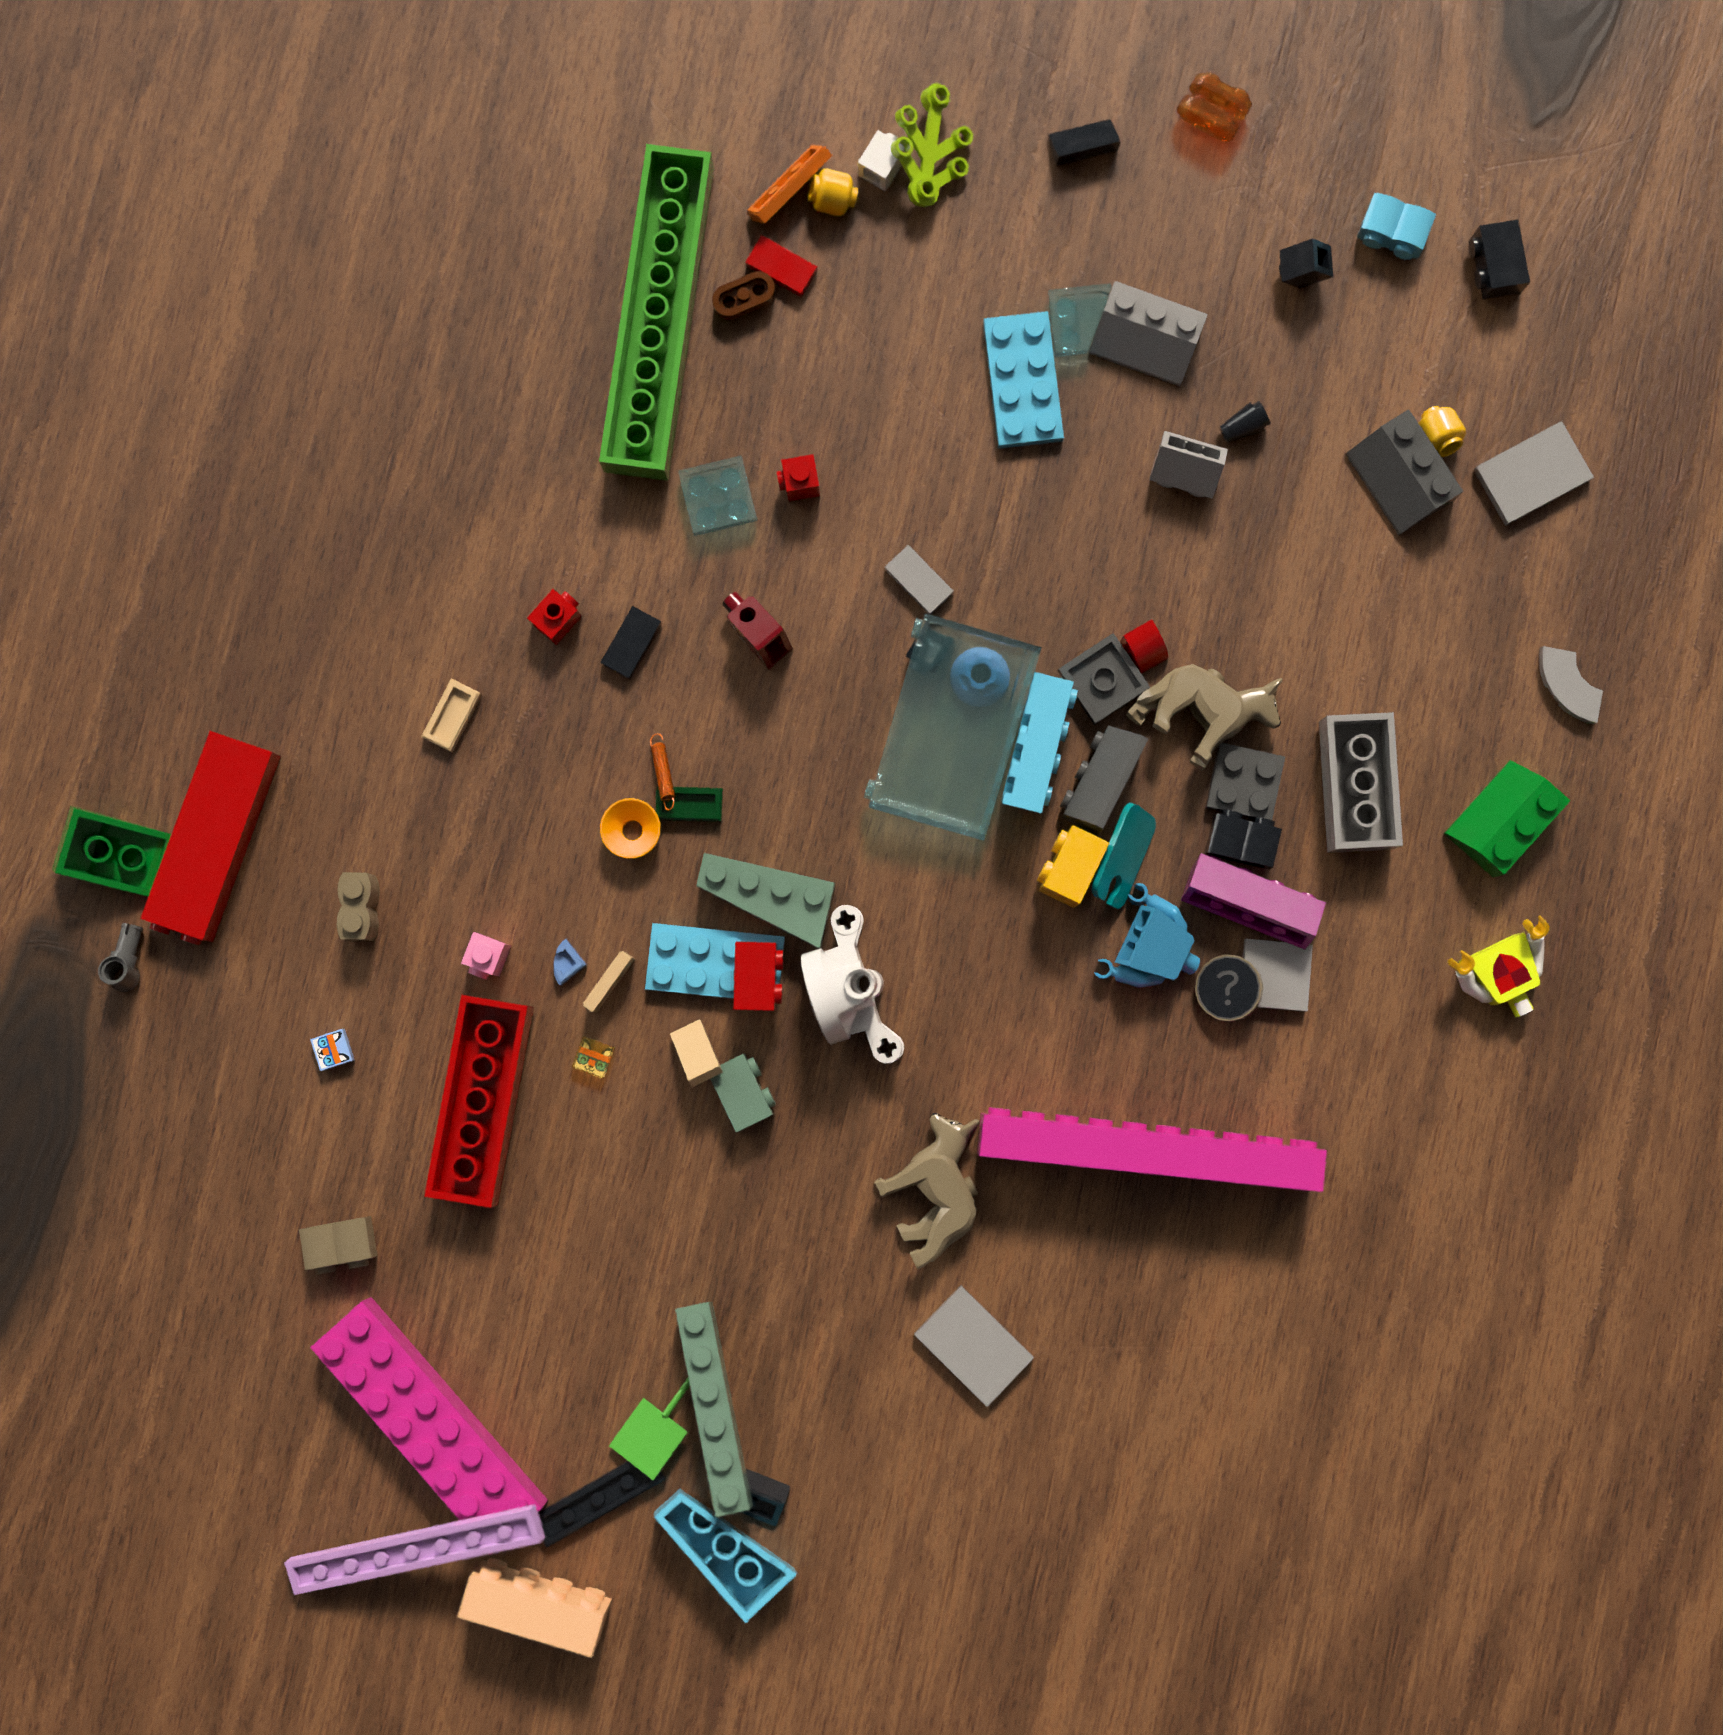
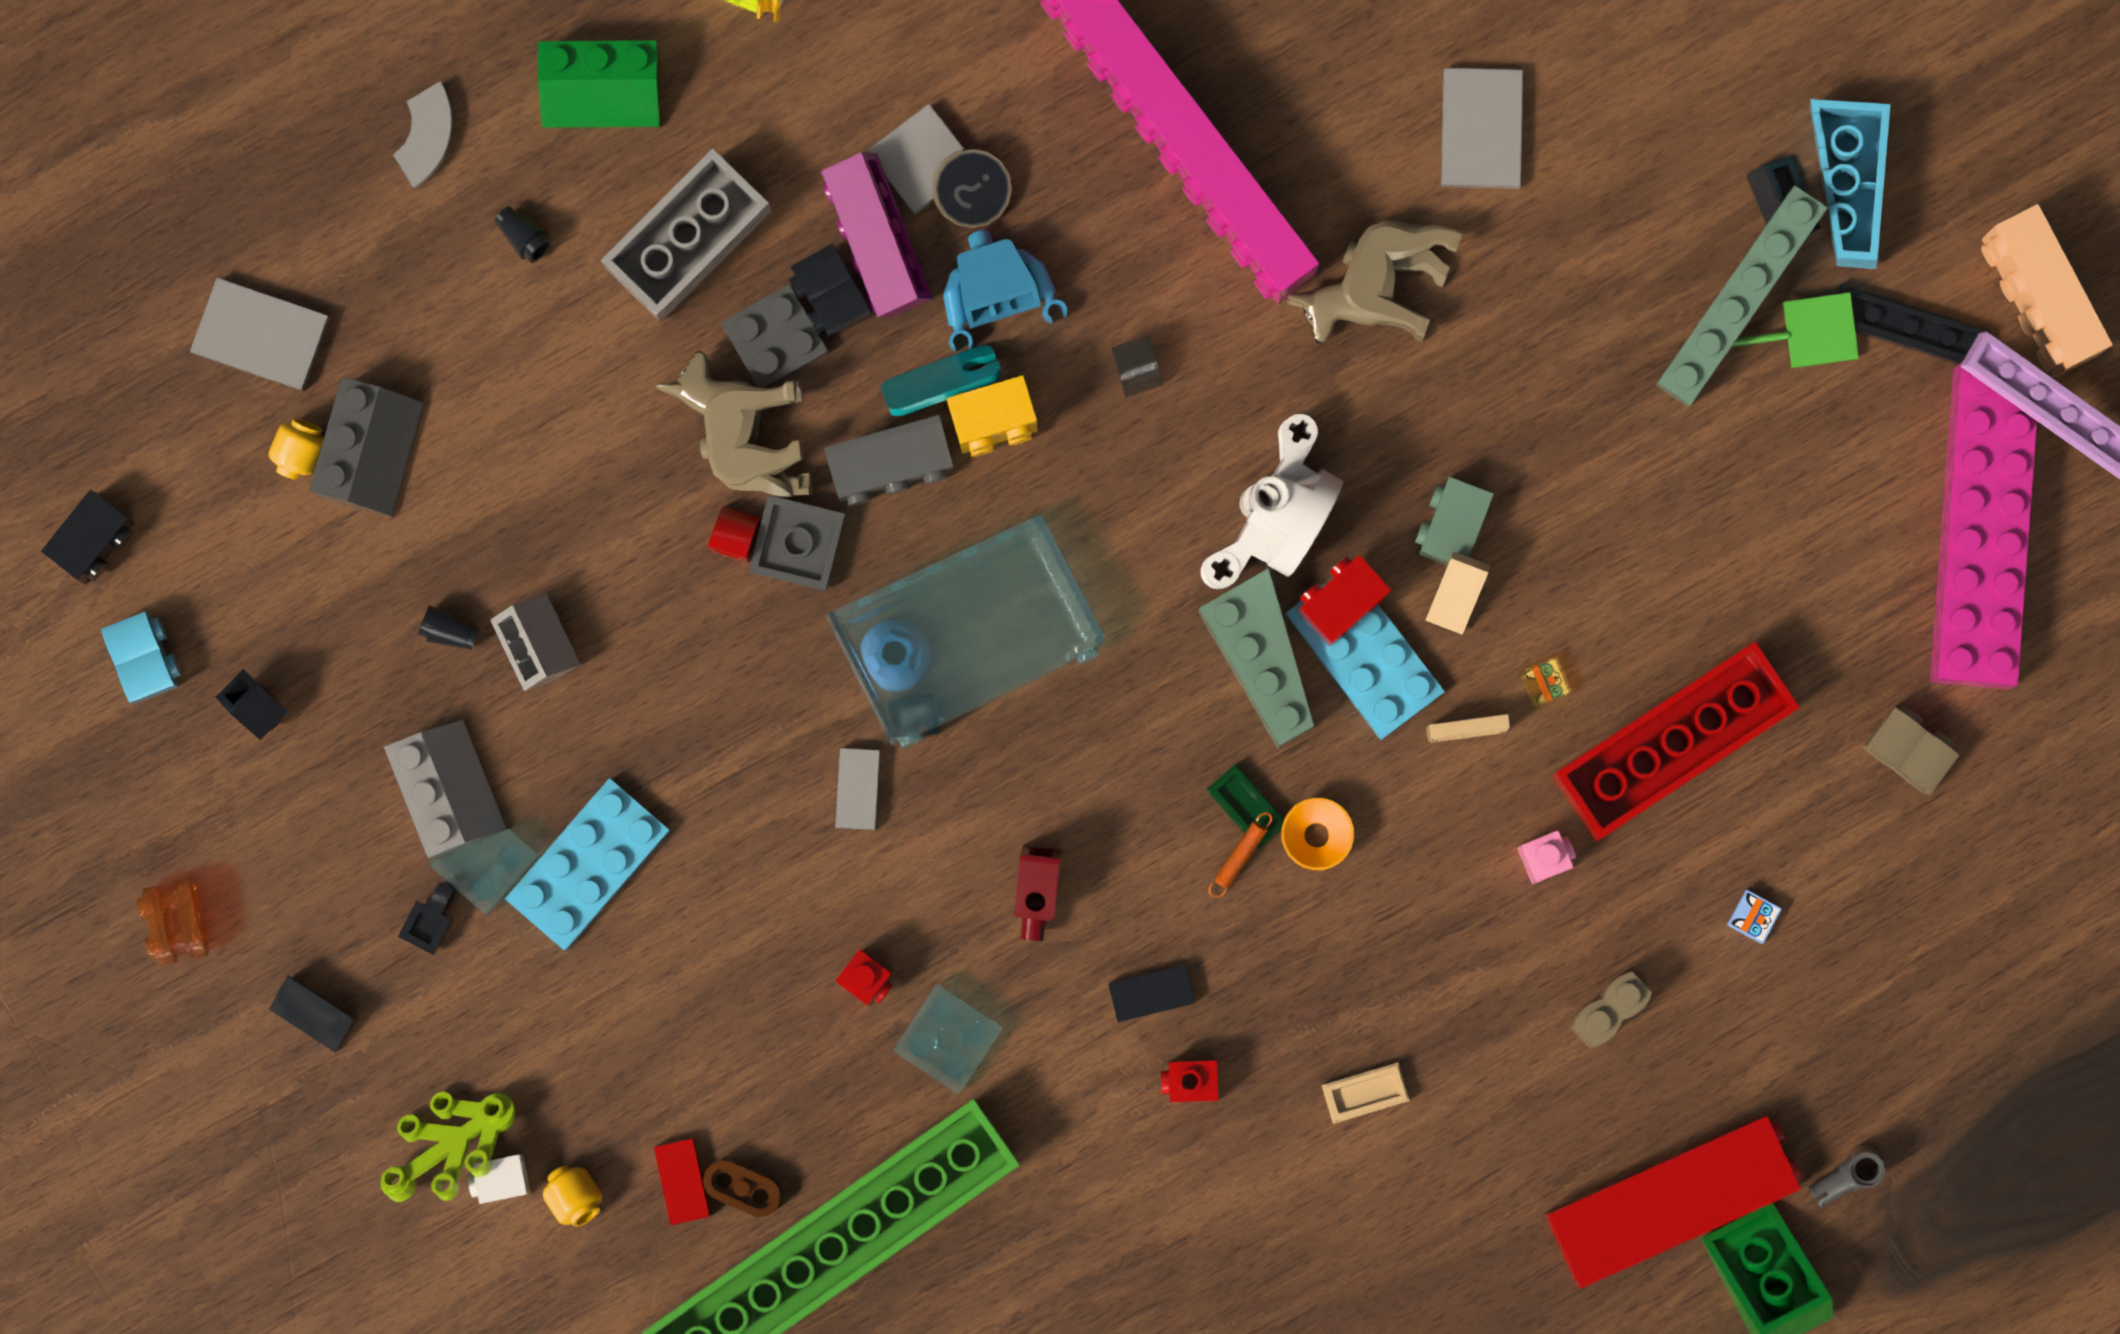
camera: 135 degrees left, 0 degrees up
(567, 962) = (1485, 783): medium blue tile -> none
(789, 183) = (600, 1243): orange tile -> none
(1021, 987) = (1136, 366): none -> clear smoke brick
(1038, 741) = (916, 542): medium azure wedge -> none
(1075, 253) = (428, 923): none -> black plate
(1451, 686) = (523, 234): none -> black cone

